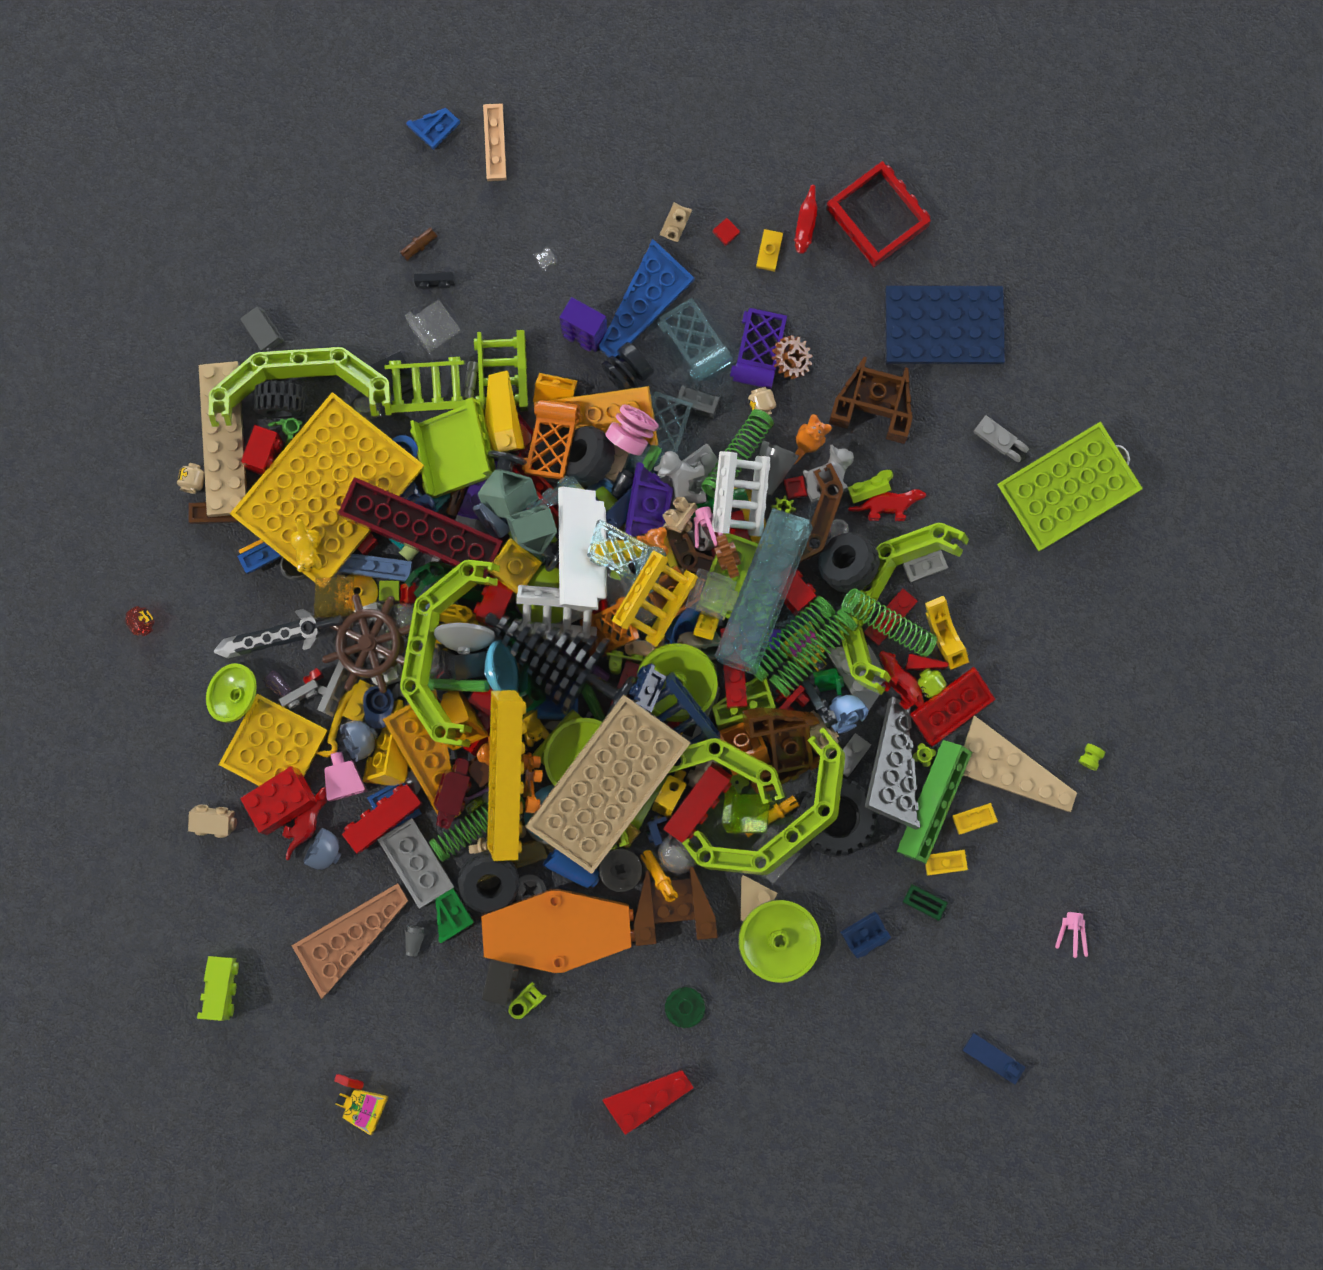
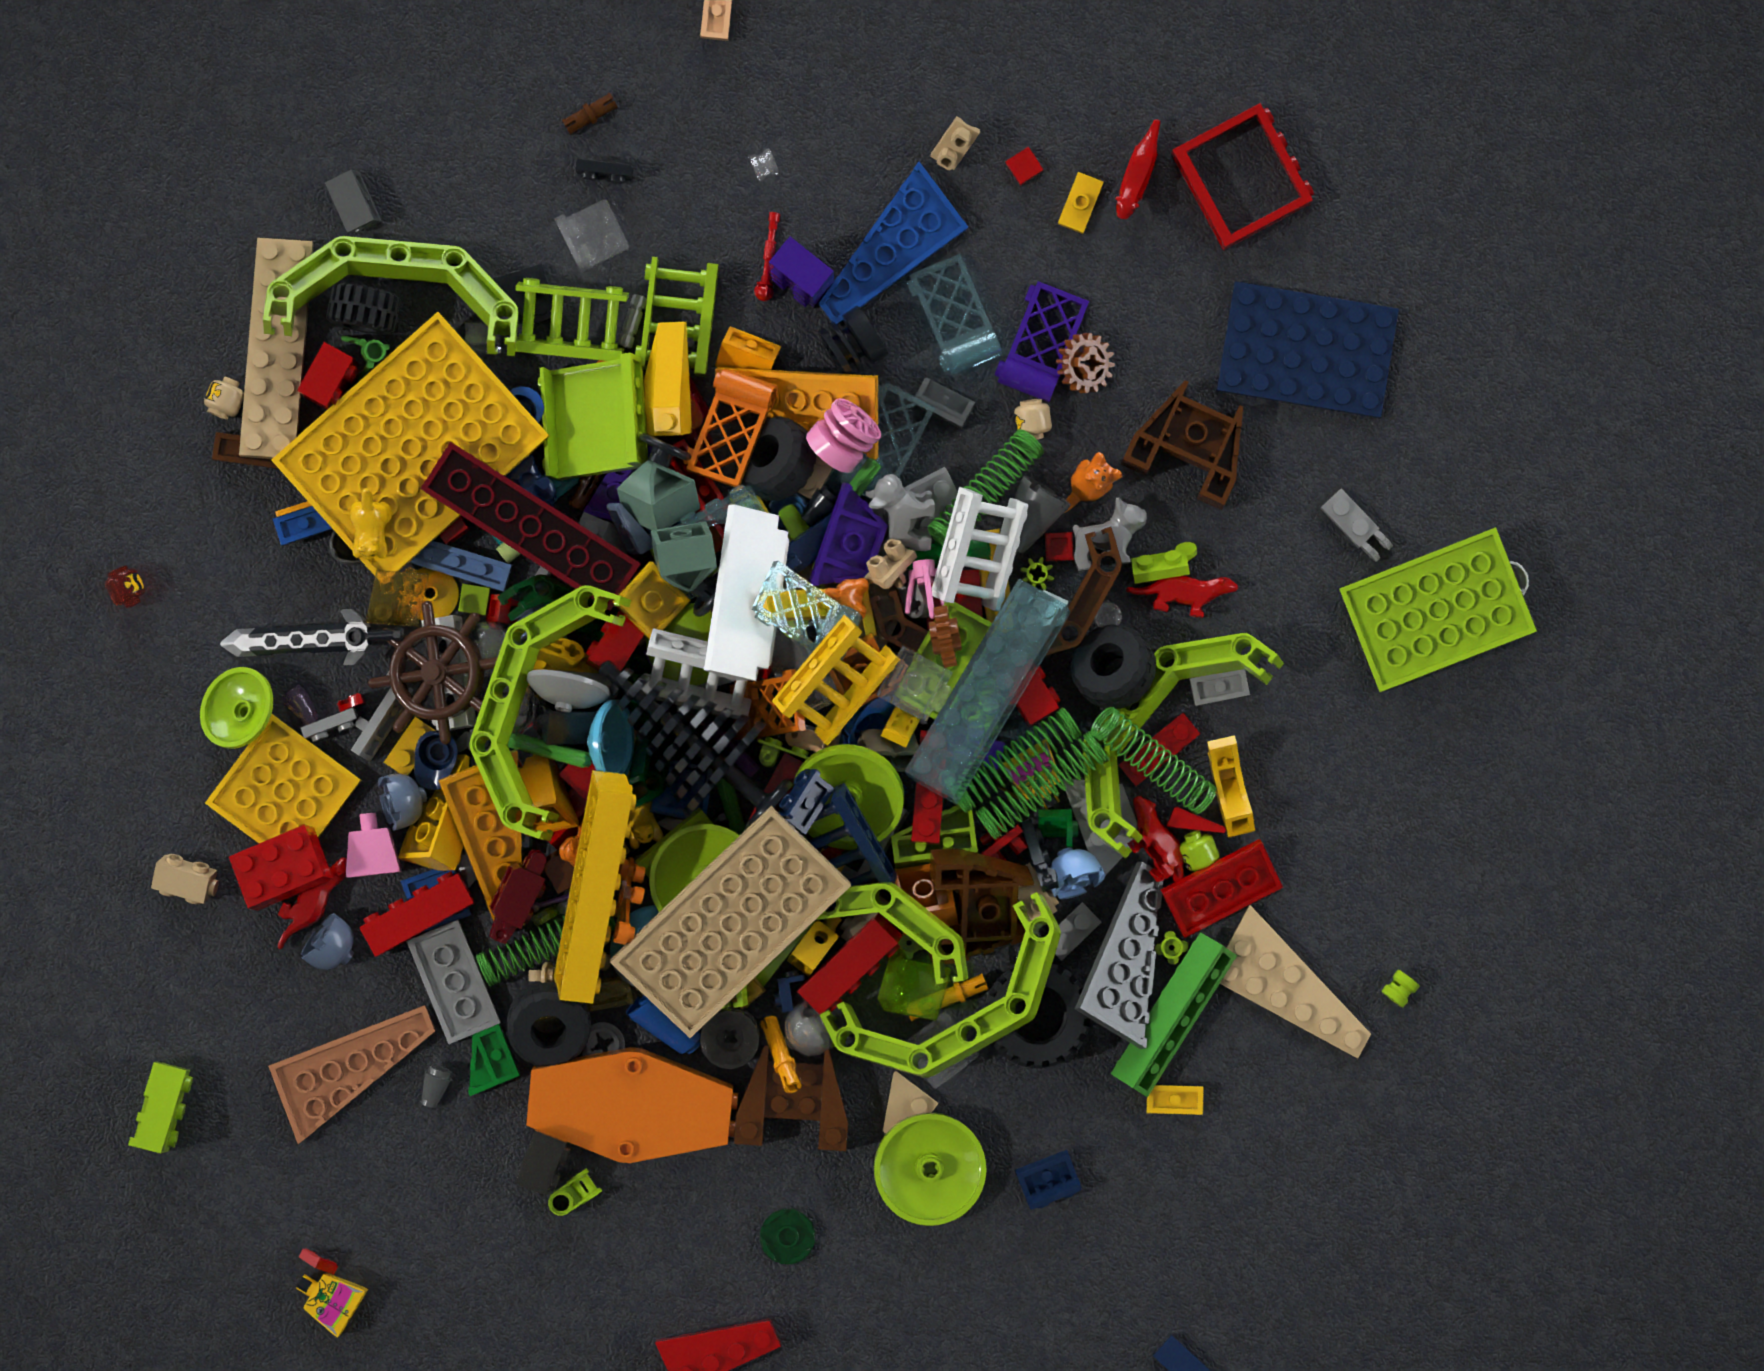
camera: 10 degrees right, 5 degrees up
(336, 723) = (373, 772): yellow piece -> none
(558, 343) = (764, 290): none -> red piece
(909, 895) = (1118, 1134): dark green tile -> none
(974, 818) = (1225, 1046): yellow plate -> none
(1074, 922) = (1336, 1209): bright pink plant -> none

